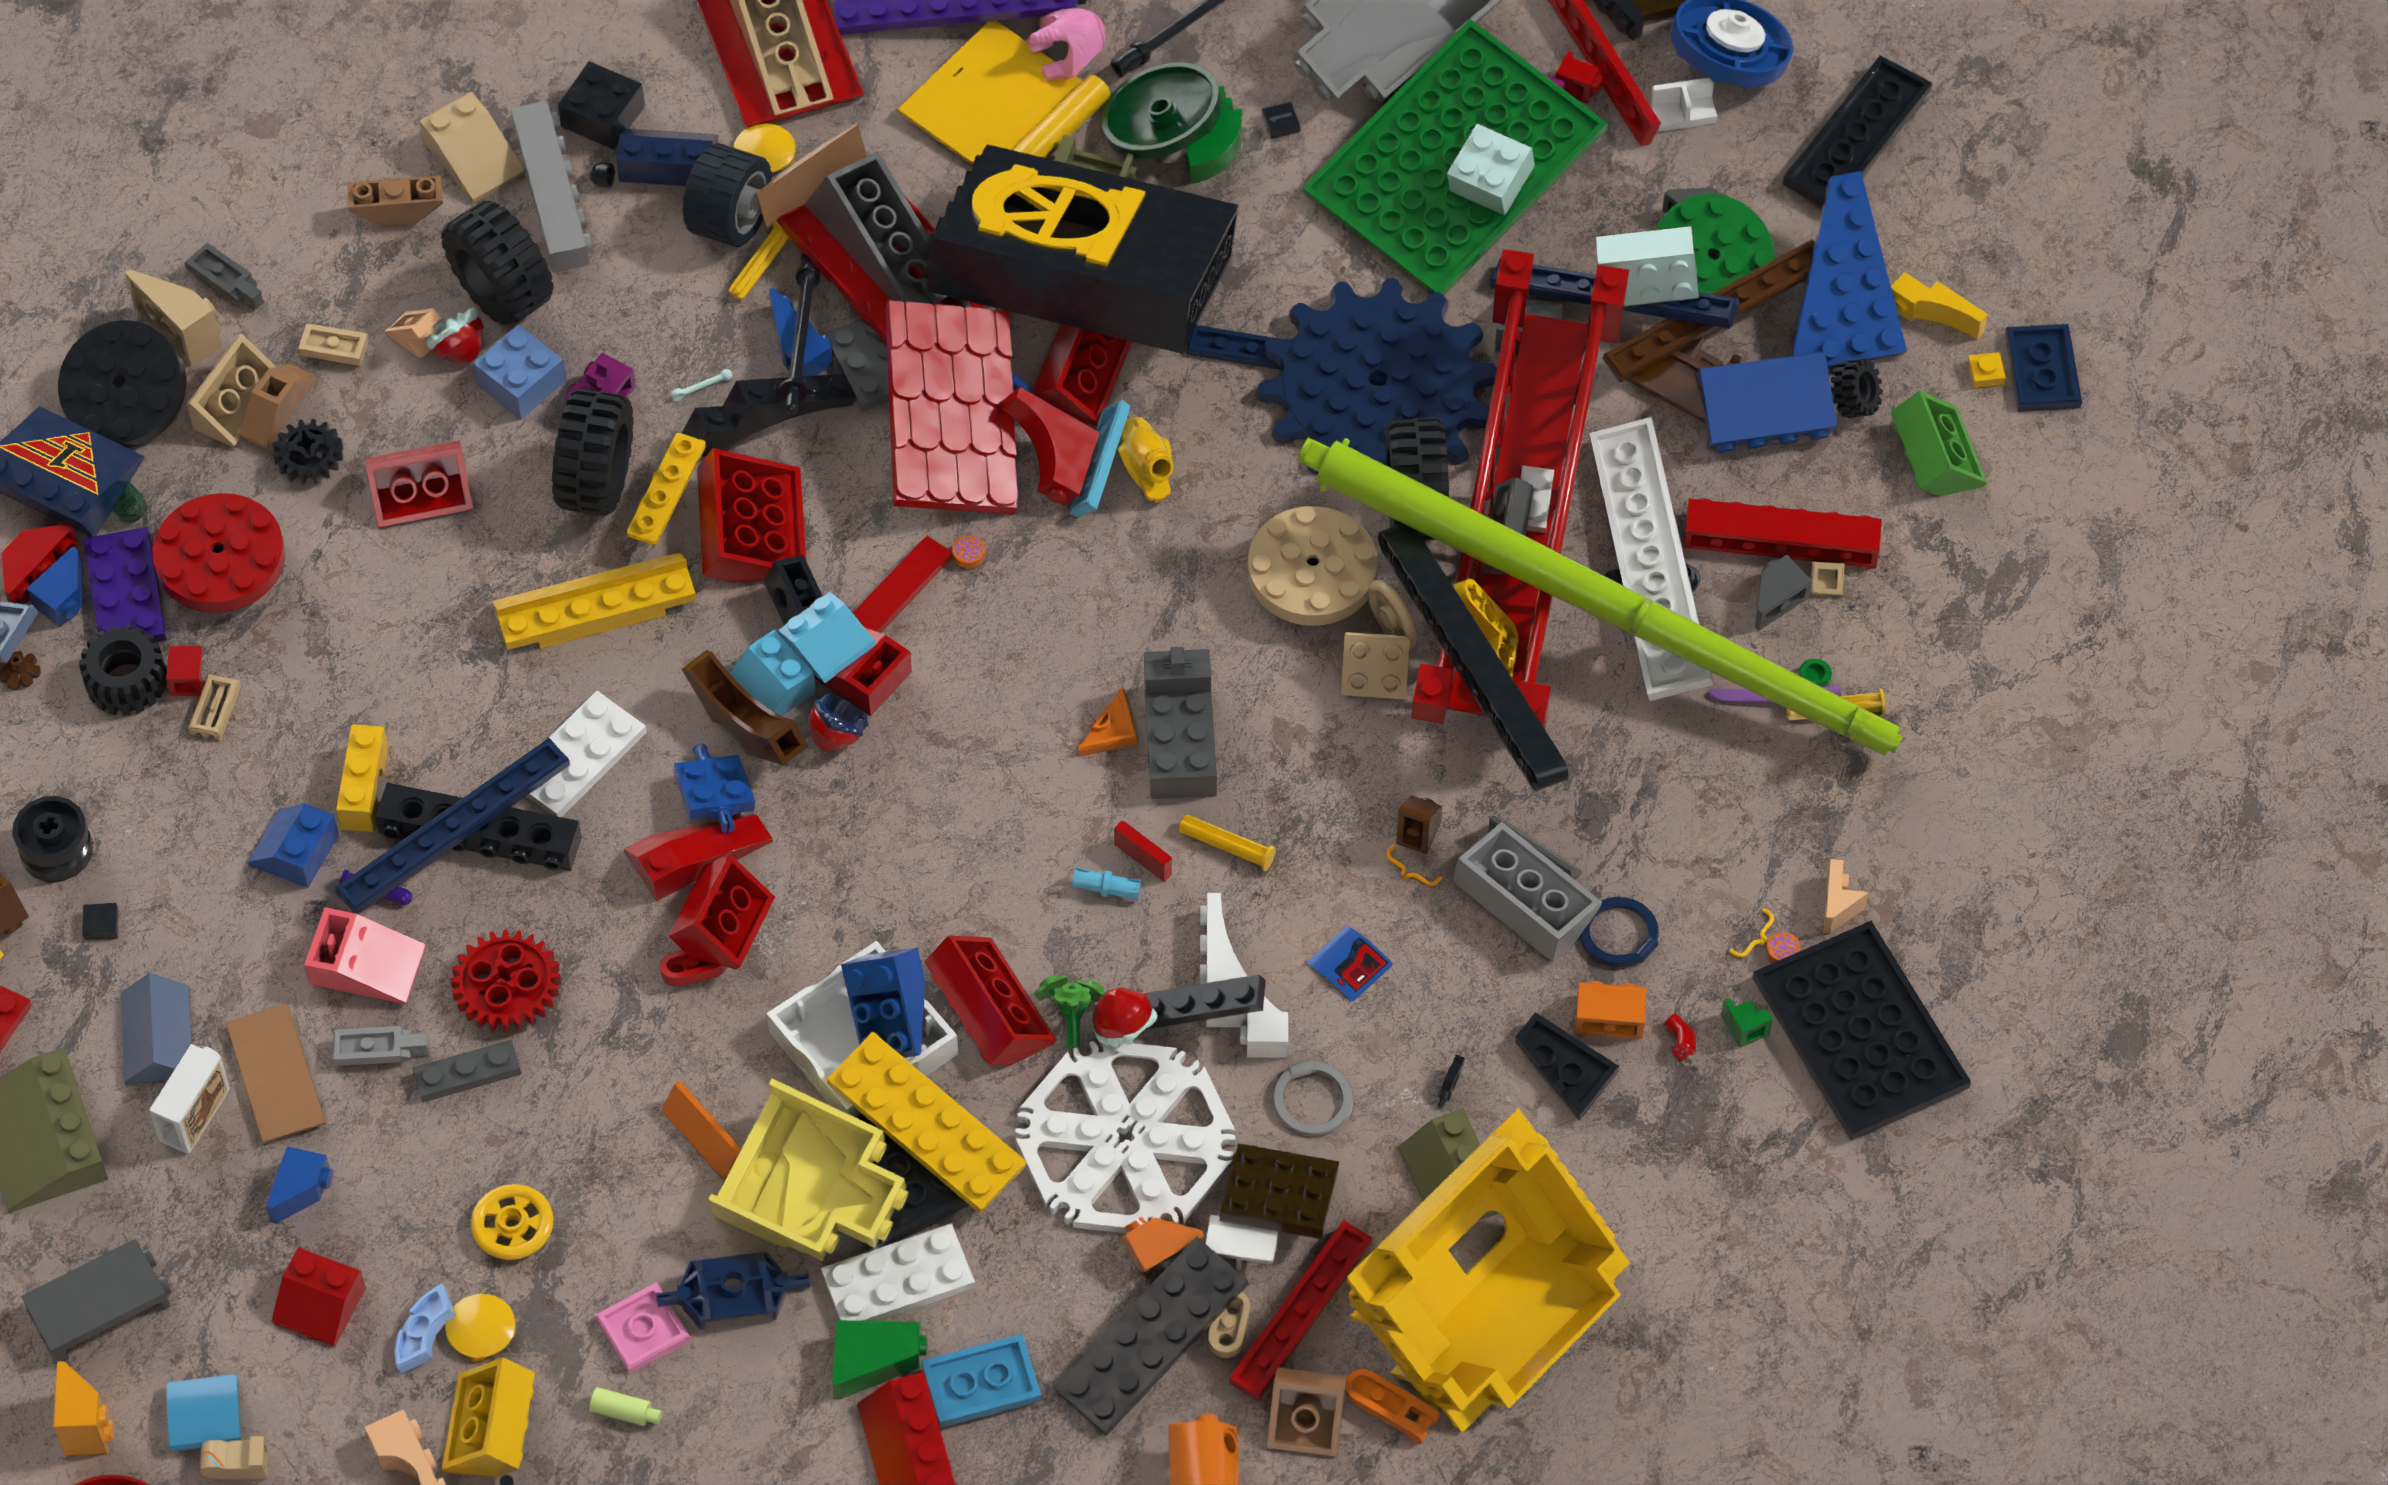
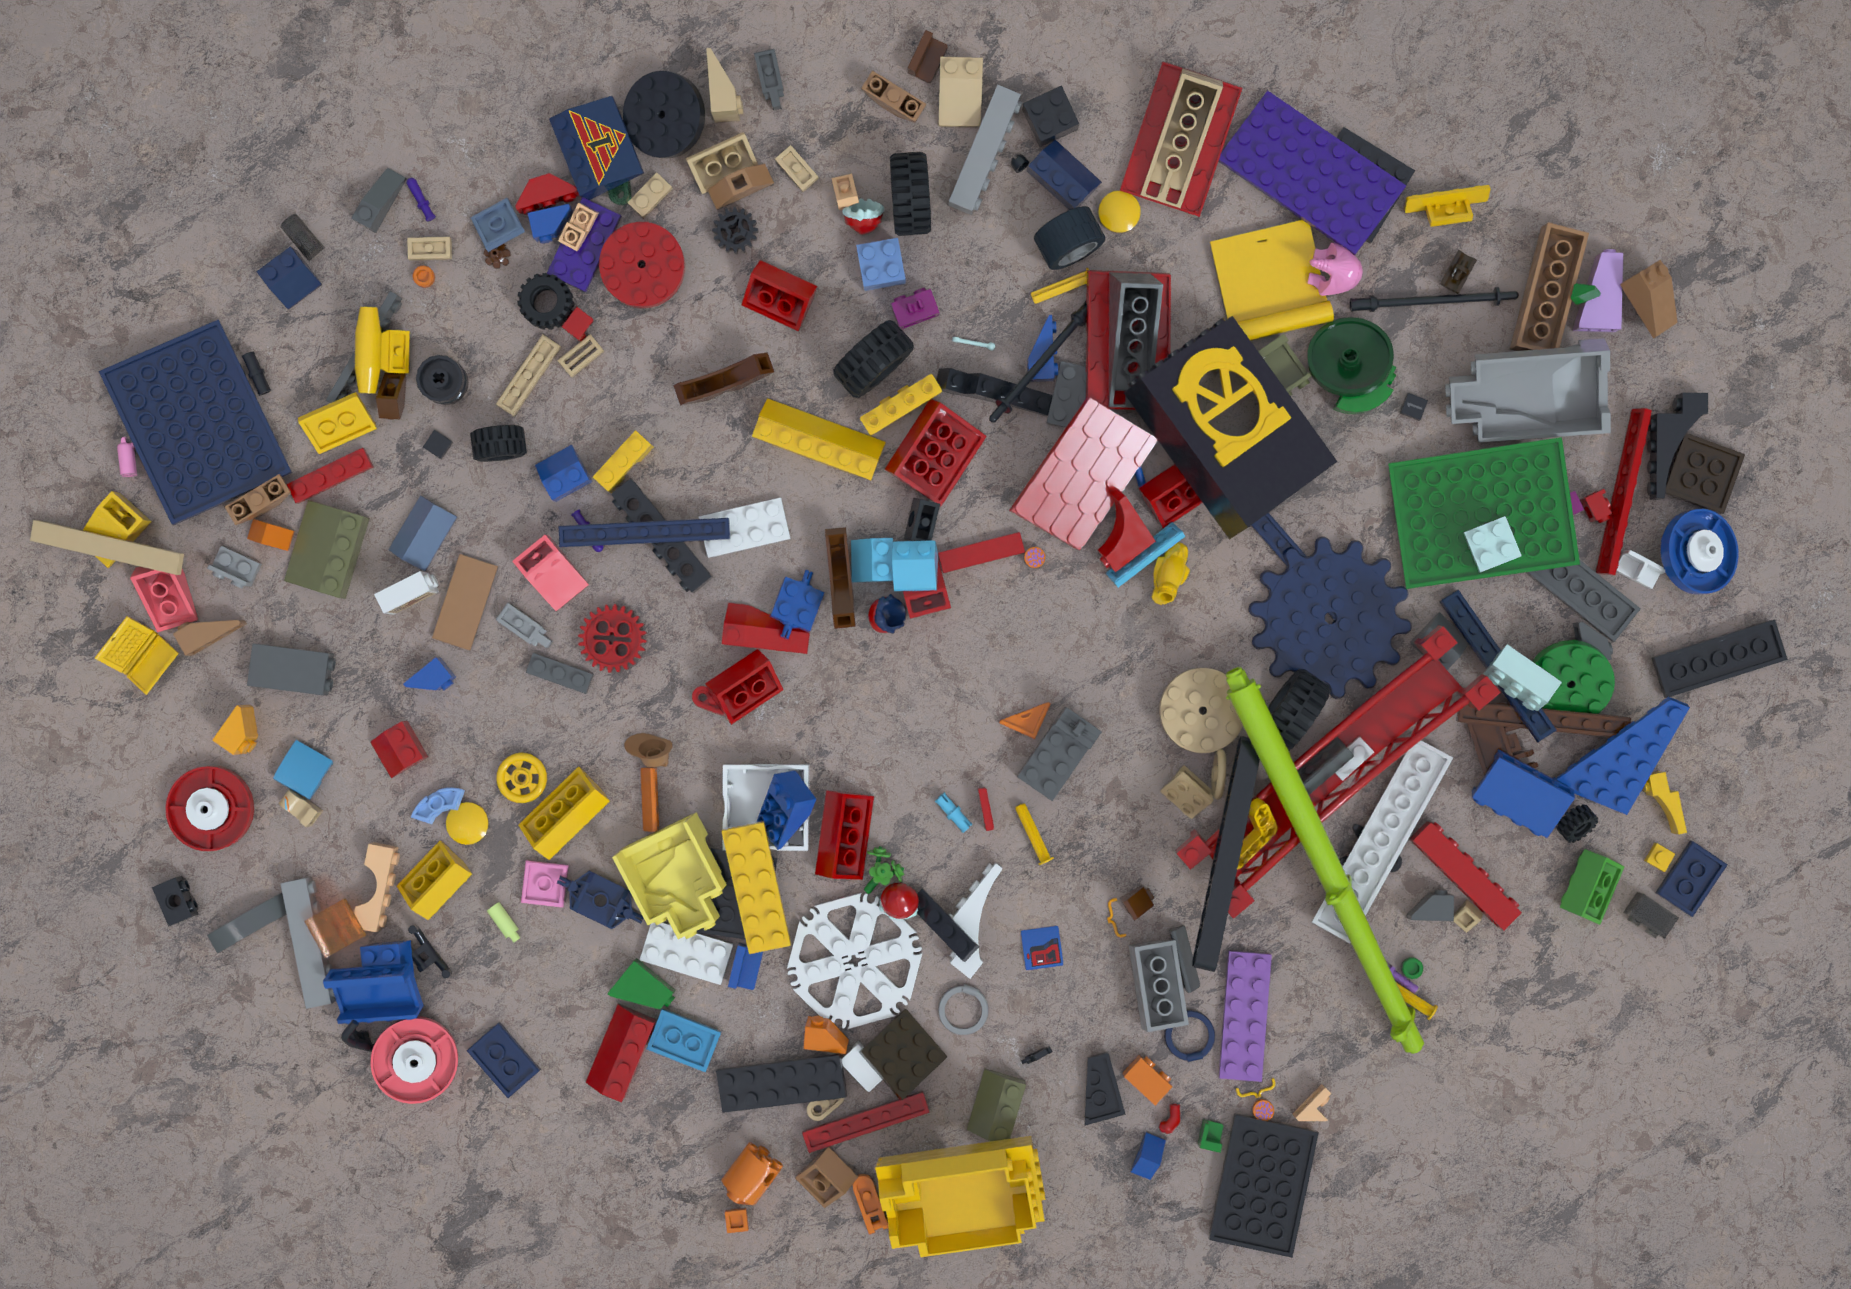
camera: 35 degrees right, 30 degrees up
(104, 563) = (578, 226): none -> light nougat slope
(162, 771) = (528, 375): none -> tan tile
(168, 485) = (650, 195): none -> tan plate
(183, 850) = (498, 443): none -> black tyre
(403, 143) = (927, 57): none -> reddish brown panel
(428, 598) = (724, 380): none -> reddish brown arch
(602, 1221) = (563, 813): none -> yellow slope
(661, 1072) = (649, 748): none -> medium nougat piece
(801, 179) = (1126, 257): medium nougat piece -> none
(989, 1241) = (745, 968): none -> blue panel
(1643, 168) = (1589, 597): none -> dark grey plate
(1665, 863) = (1245, 1016): none -> medium lavender plate
(1693, 1101) = (1148, 1156): none -> blue slope
(2032, 429) = (1650, 915): none -> clear smoke brick

